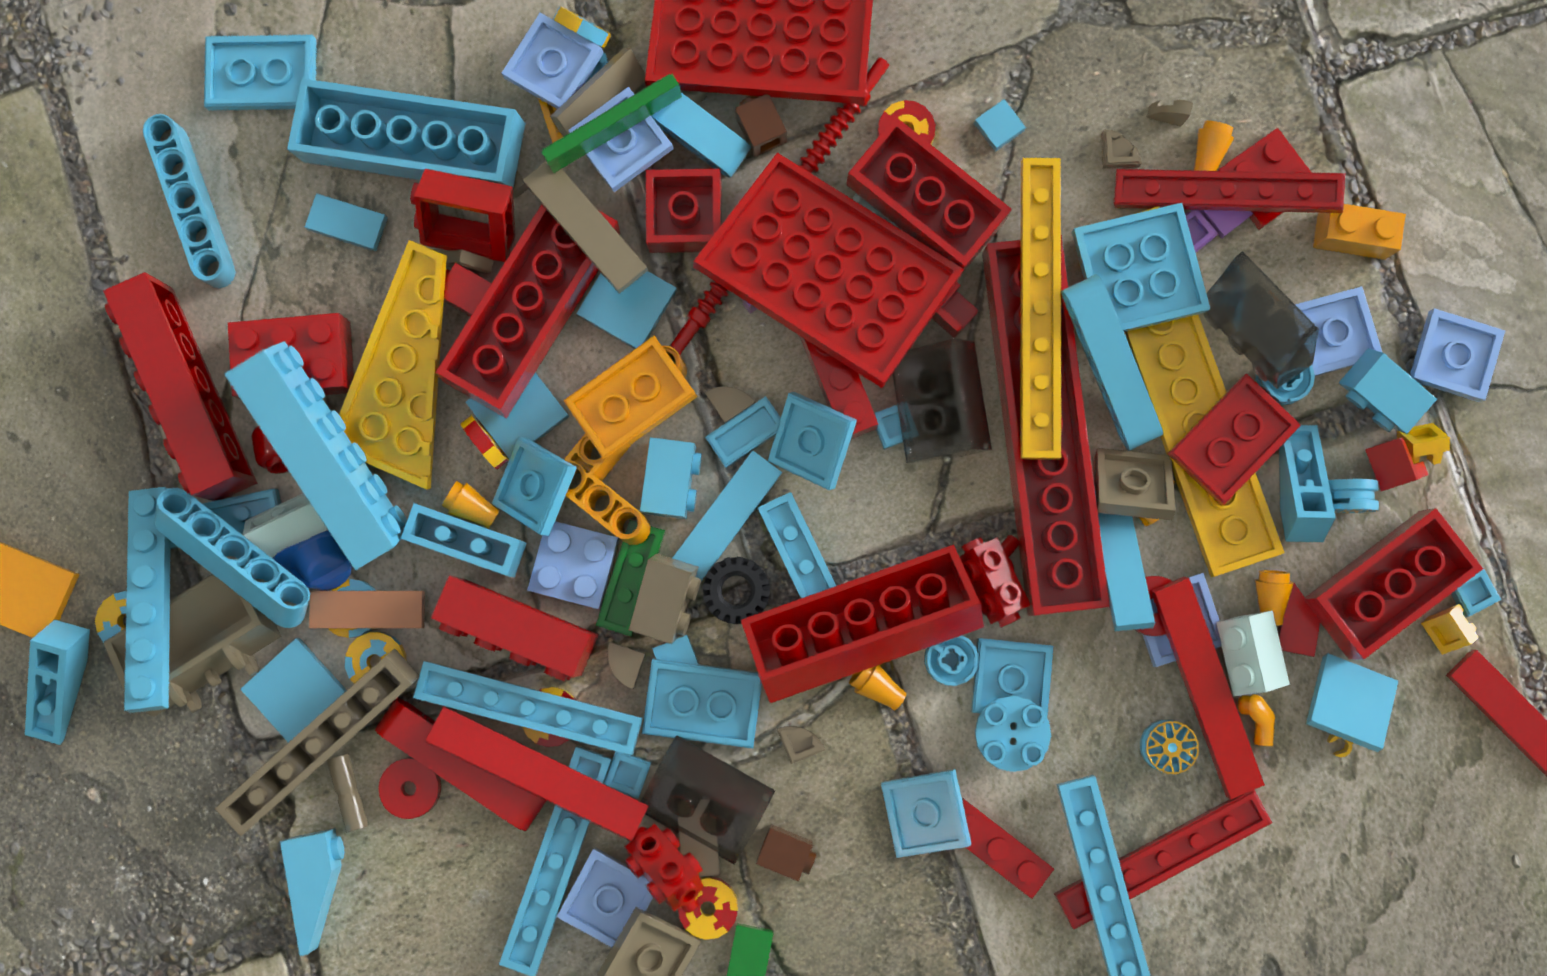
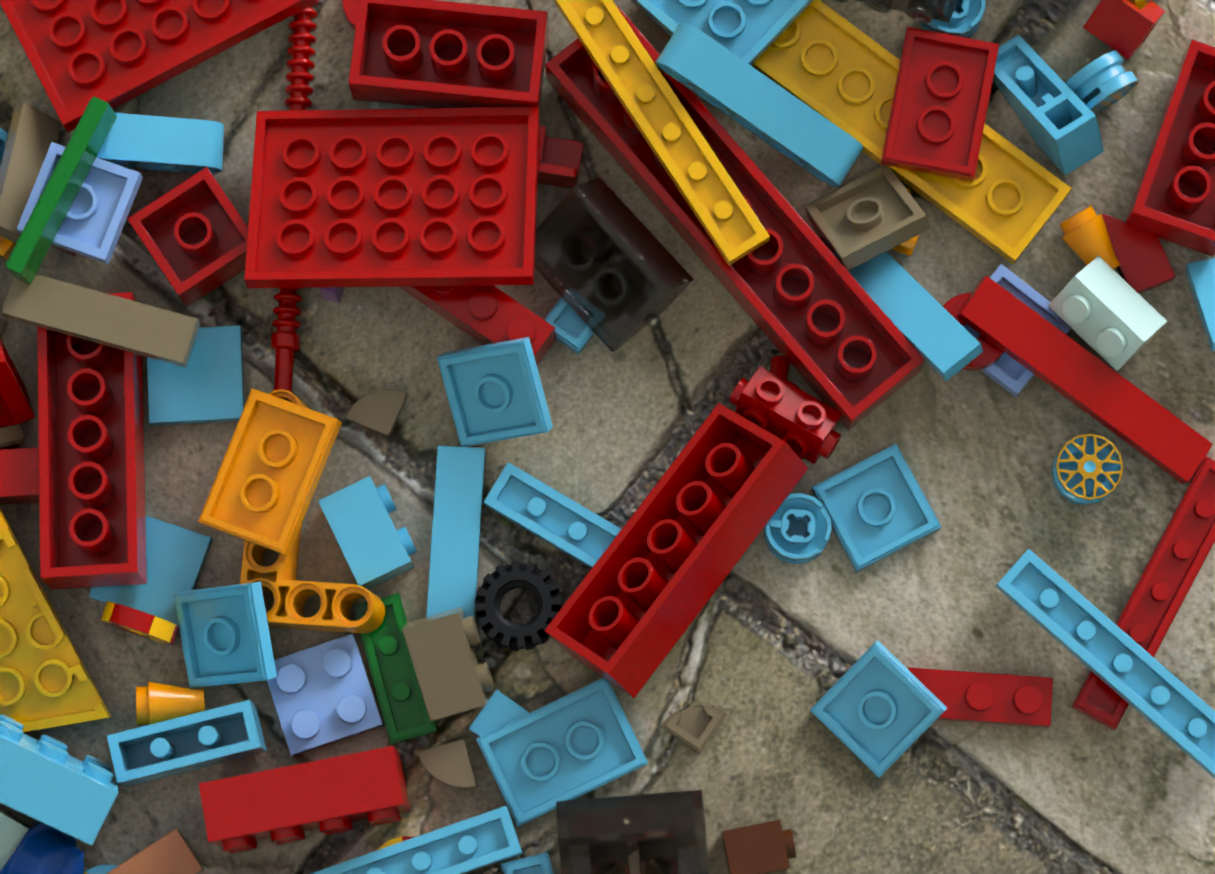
camera: 35 degrees left, 5 degrees down
(744, 432) = (416, 432): medium azure tile -> none
(760, 124) = (218, 93): reddish brown brick -> none
(878, 686) = (737, 608): light orange cone -> none
(1031, 733) = (931, 548): medium azure plate -> none
(1261, 715) = (1162, 373): light orange arm -> none

